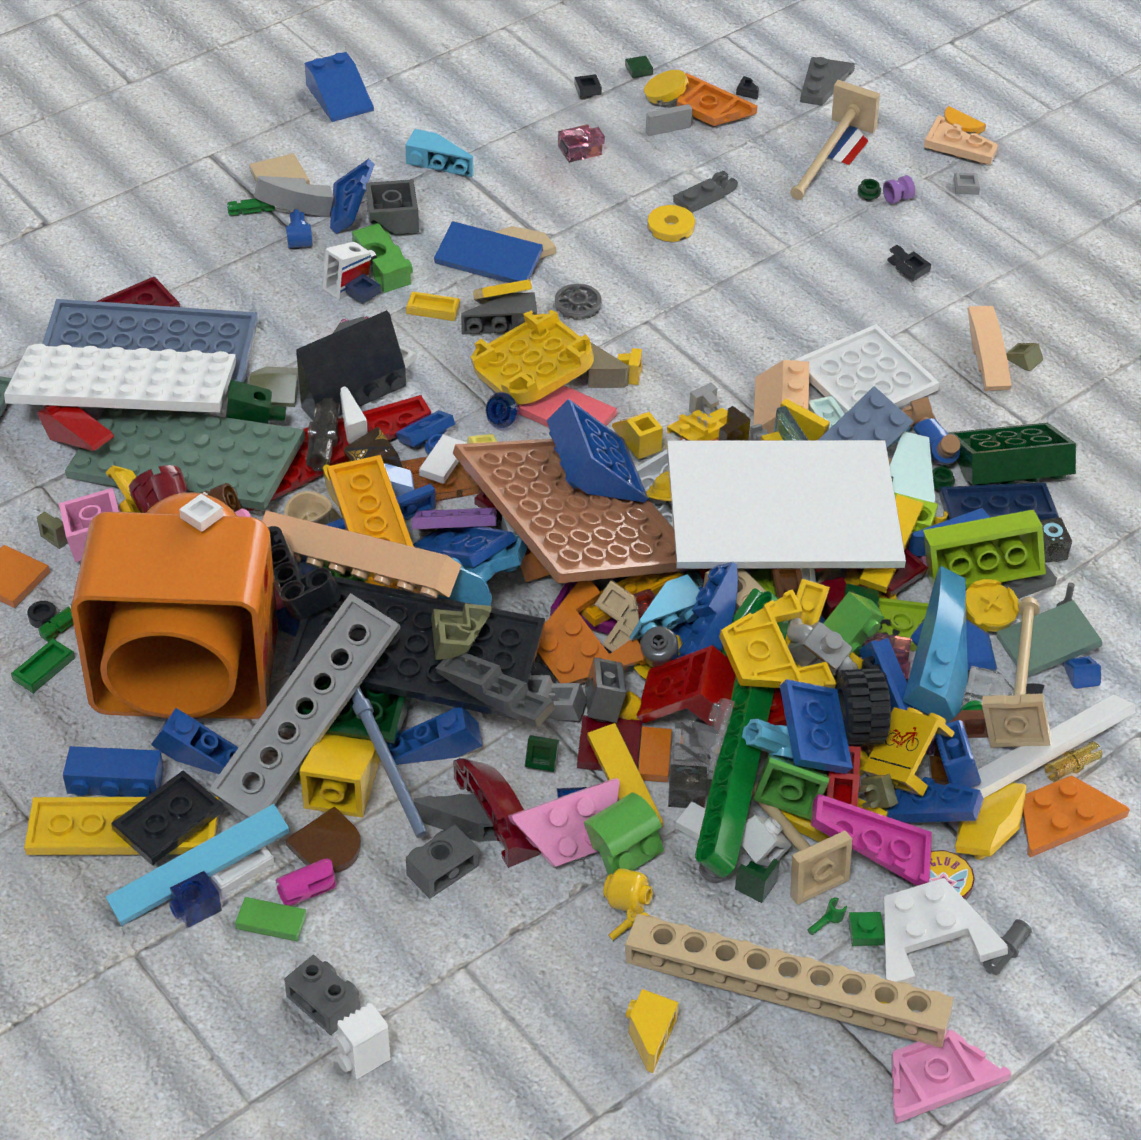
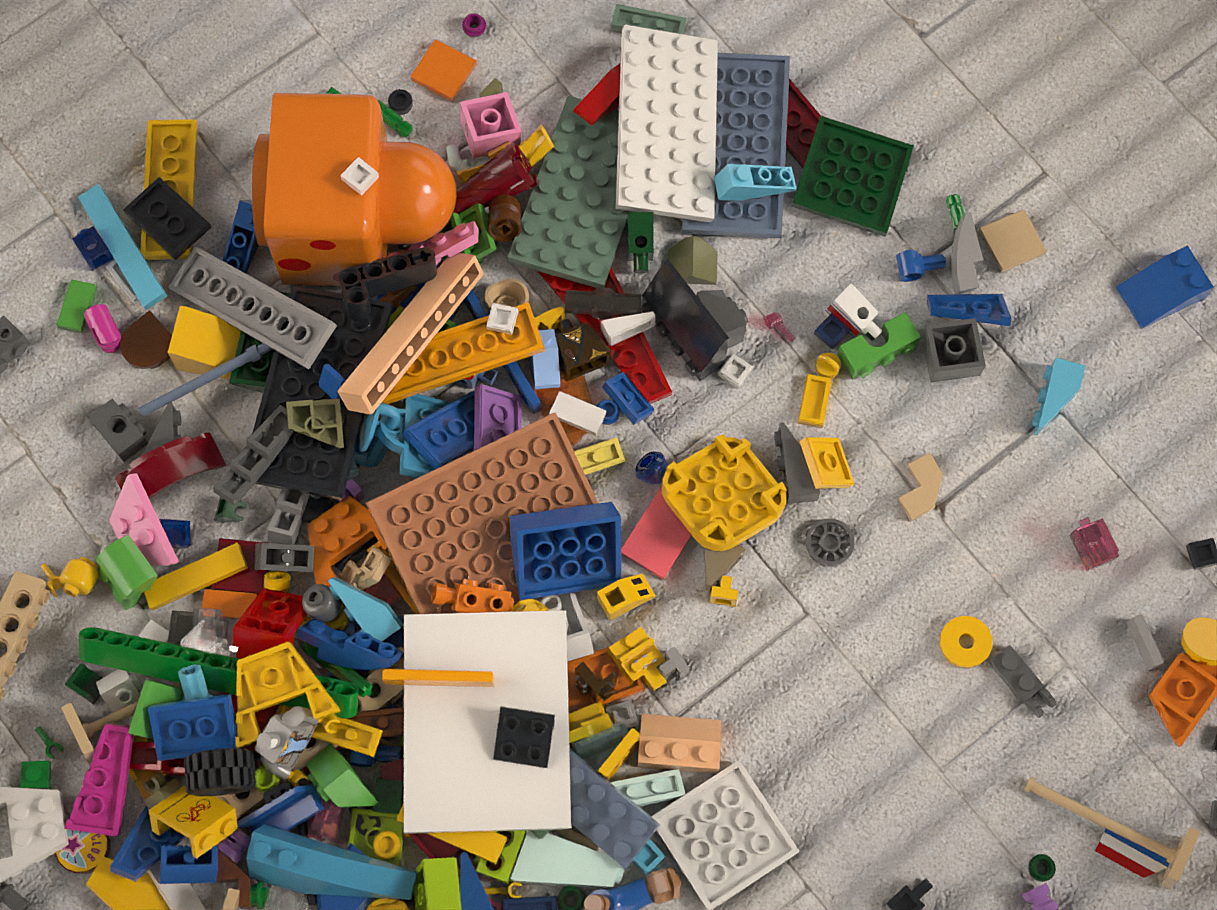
camera: 90 degrees right, 25 degrees up
(112, 771) = (220, 175): blue brick -> none
(198, 265) = (852, 176): none -> dark green plate
(199, 323) = (753, 181): none -> medium azure slope
(345, 485) = (502, 318): none -> white tile
(397, 294) = (828, 365): none -> yellow tile
(413, 616) = (331, 381): none -> blue slope
(437, 738) = (243, 415): blue slope -> none
(488, 253) = (893, 451): blue tile -> none
(653, 519) = (483, 597): none -> orange brick
(747, 525) = (438, 678): none -> light orange tile
(801, 463) = (524, 737): none -> black hinge
(909, 607) = (387, 845): none -> yellow tile

